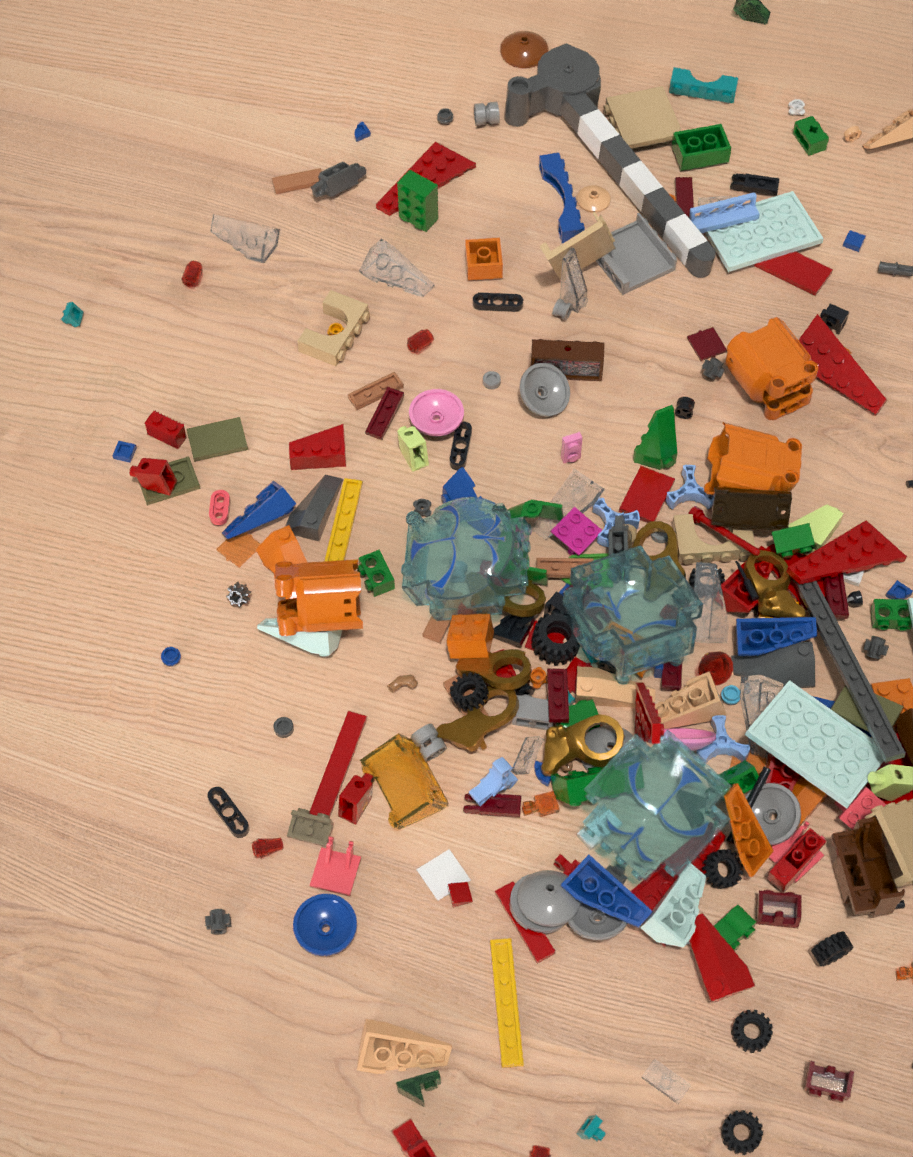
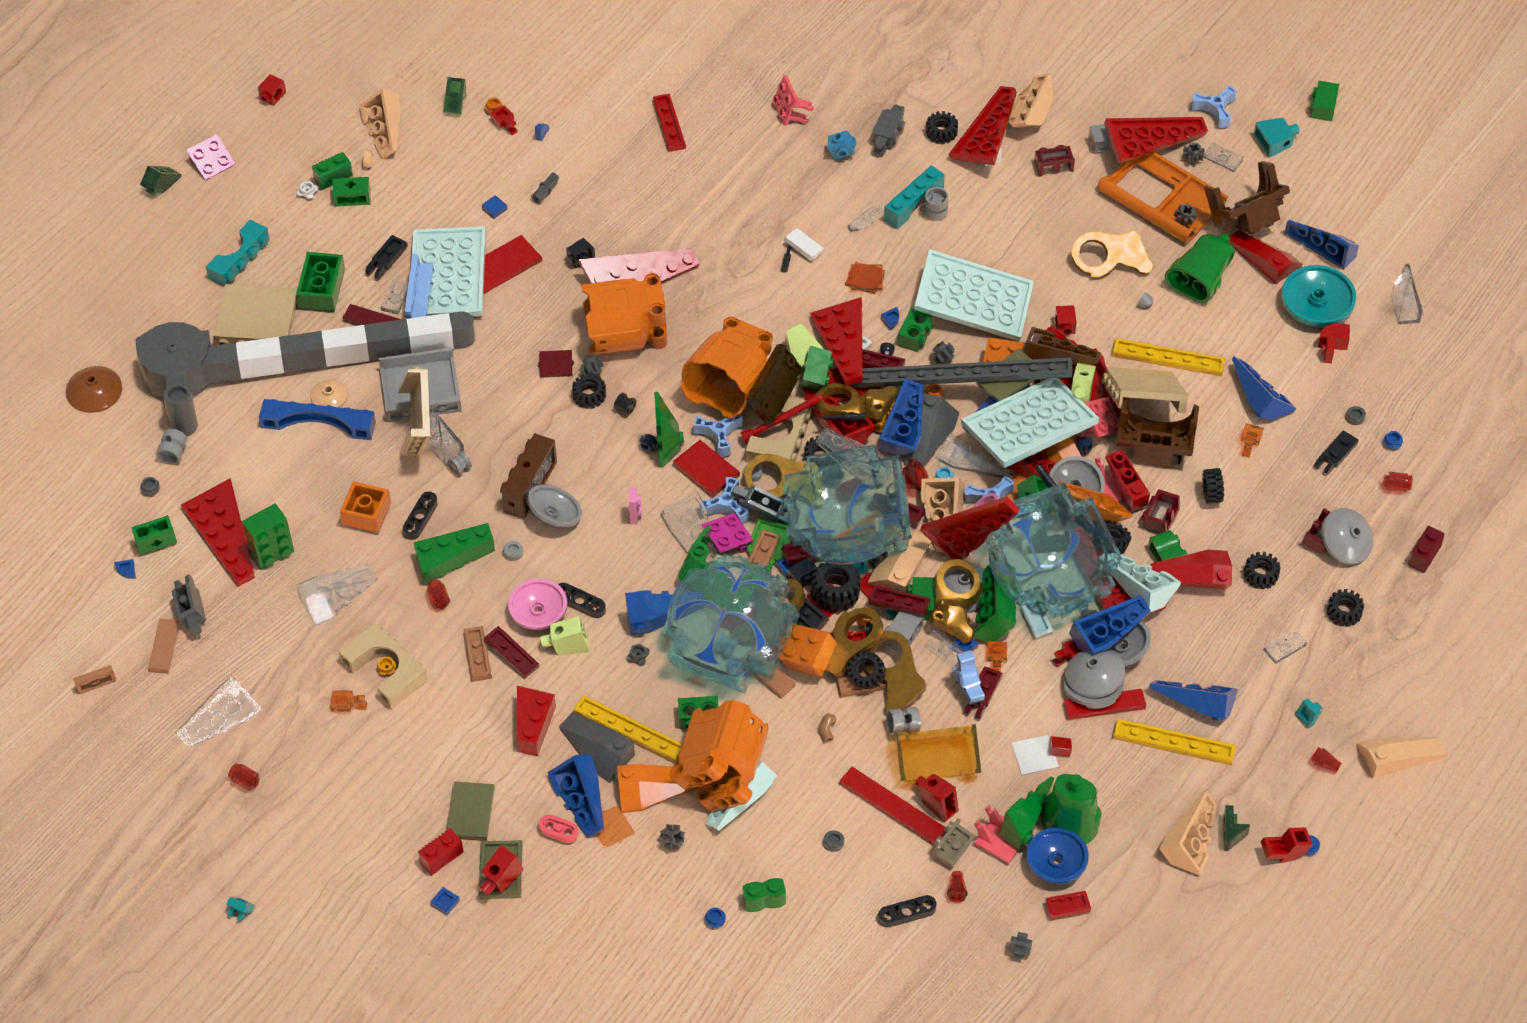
camera: 70 degrees left, 5 degrees down
(202, 686) = (764, 895): none -> green brick
(246, 148) = (94, 679): none -> nougat tile
(279, 953) = (1068, 904): none -> red plate
(289, 313) = (343, 701): none -> clear orange plate
(350, 880) = (1024, 815): none -> green wedge
(375, 921) = (1073, 807): none -> green torso
(394, 133) = (154, 535): none -> green brick
(465, 332) = (452, 550): none -> green wedge
(564, 1015) = (1209, 701): none -> blue wedge
(686, 368) = (589, 399): none -> black tyre
(793, 32) = (210, 157): none -> hinge
(824, 656) = (934, 389): none -> orange plate
(825, 113) = (332, 168): none -> green brick
(828, 810) = (1084, 445): none -> dark blue plate
(830, 1093) = (1341, 540): none -> light grey dish
(887, 45) = (271, 89): none -> red brick

